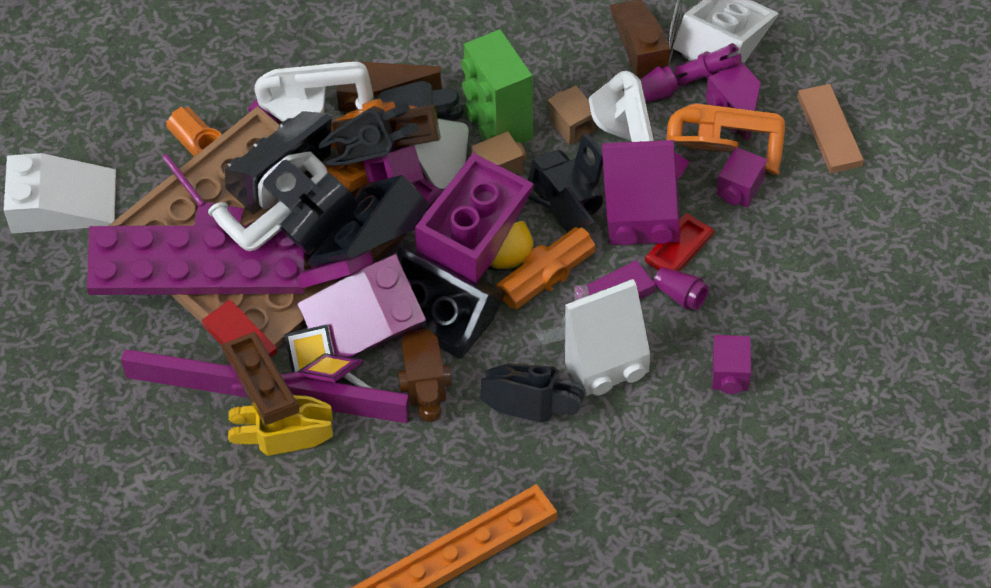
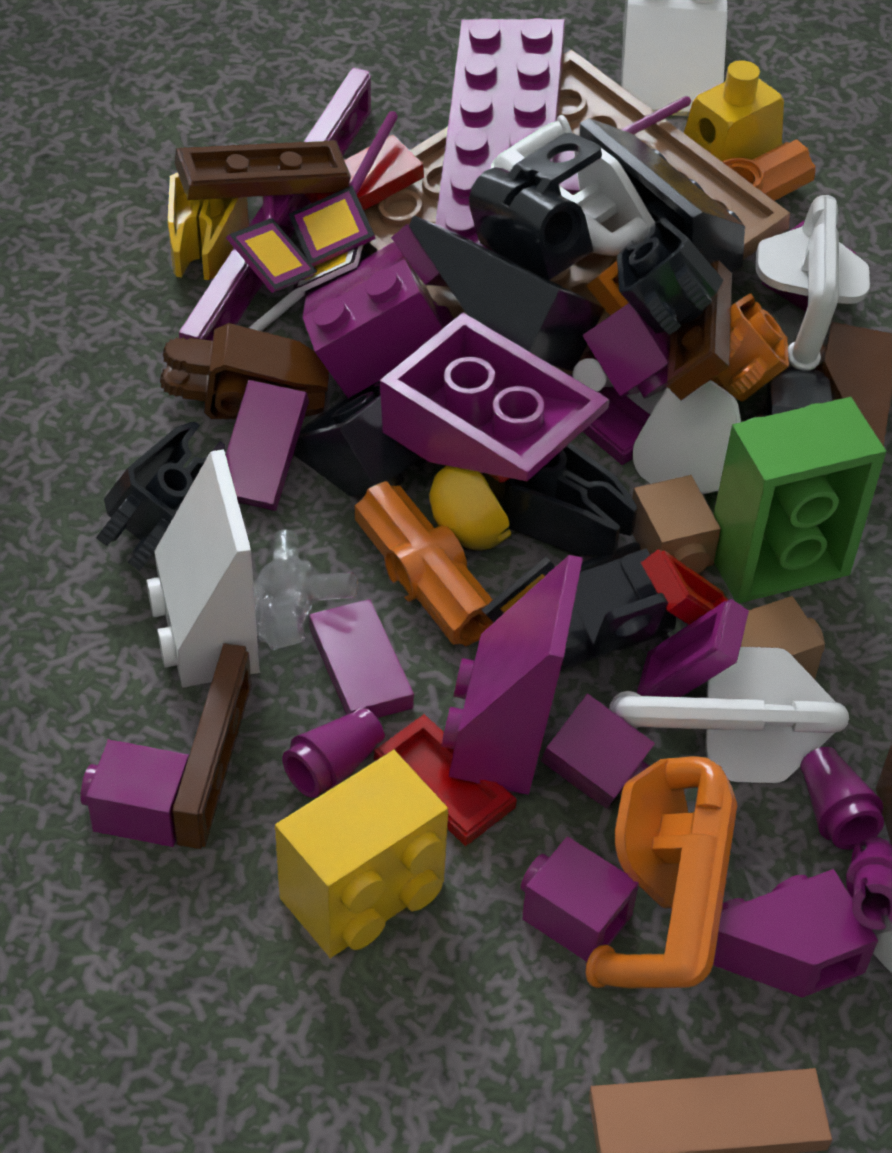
camera: 95 degrees right, 5 degrees down
(148, 142) = (738, 115): none -> yellow torso
(286, 344) = (338, 220): none -> piece
(476, 351) = (264, 442): none -> magenta tile
(557, 140) = (685, 590): none -> red tile
(599, 123) = (695, 652): none -> magenta tile
(688, 336) = (212, 747): none -> reddish brown tile
(752, 251) = (362, 854): none -> yellow brick

